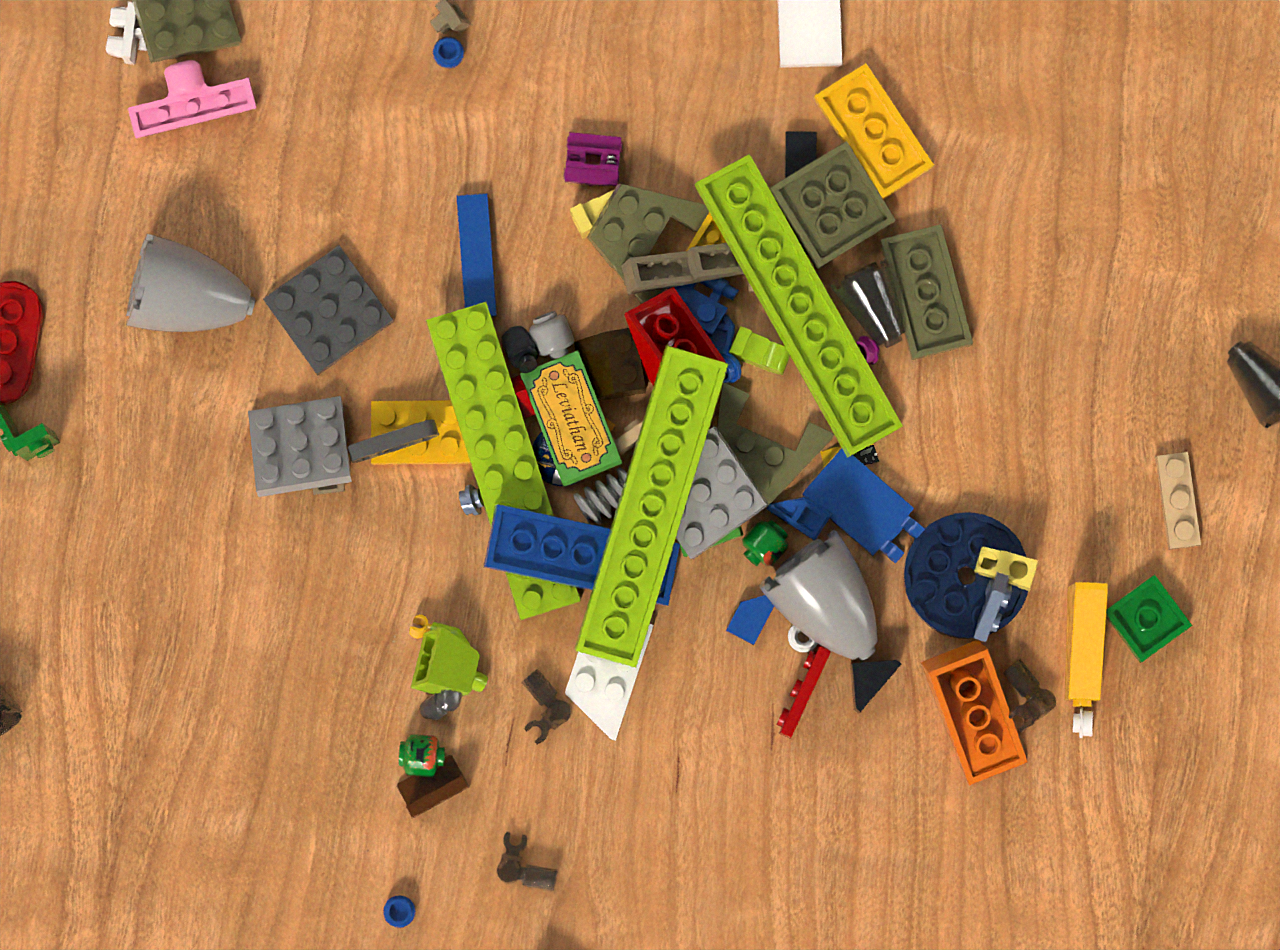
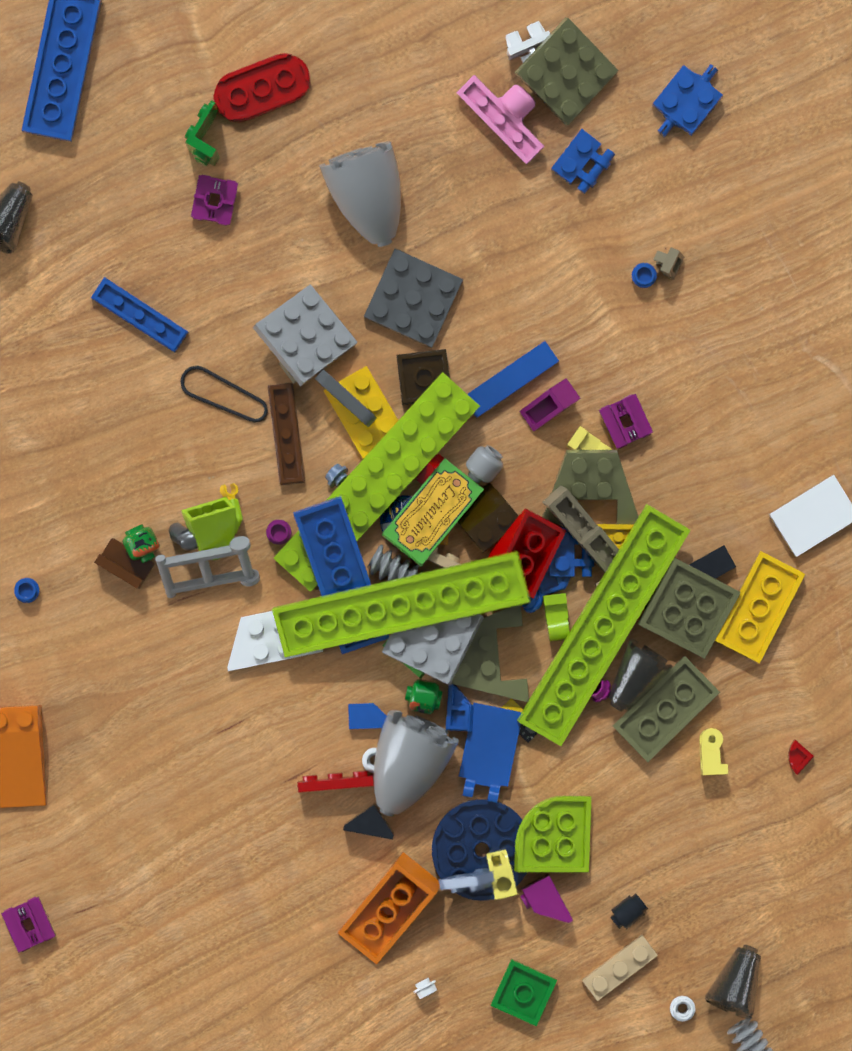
camera: 60 degrees right, 5 degrees up
(77, 457) = (225, 188): none -> magenta piece
(171, 615) = (139, 314): none -> blue tile
(279, 50) = (577, 156): none -> blue plate
(304, 560) = (228, 383): none -> black piece
(394, 530) = (286, 434): none -> reddish brown tile
(411, 348) = (419, 371): none -> dark brown plate
(495, 598) = (278, 532): none -> magenta plate
(510, 868) = (98, 650): clear smoke bar -> none
(520, 349) = (461, 448): black arm -> none
(524, 660) = (238, 546): none -> light grey piece
(528, 229) = (550, 404): none -> magenta slope
(544, 693) = (225, 619): clear smoke bar -> none
(997, 487) = (555, 836): none -> lime plate
(1001, 272) = (710, 760): none -> light yellow leg
(1038, 701) = (422, 949): clear smoke bar -> none
(1057, 182) = (798, 756): none -> red tile
(1059, 537) = (545, 899): none -> magenta slope
(1085, 642) = (480, 958): yellow slope -> none
(1123, 455) = (628, 911): none -> black brick
(1268, 453) = (688, 1014): none -> white plate

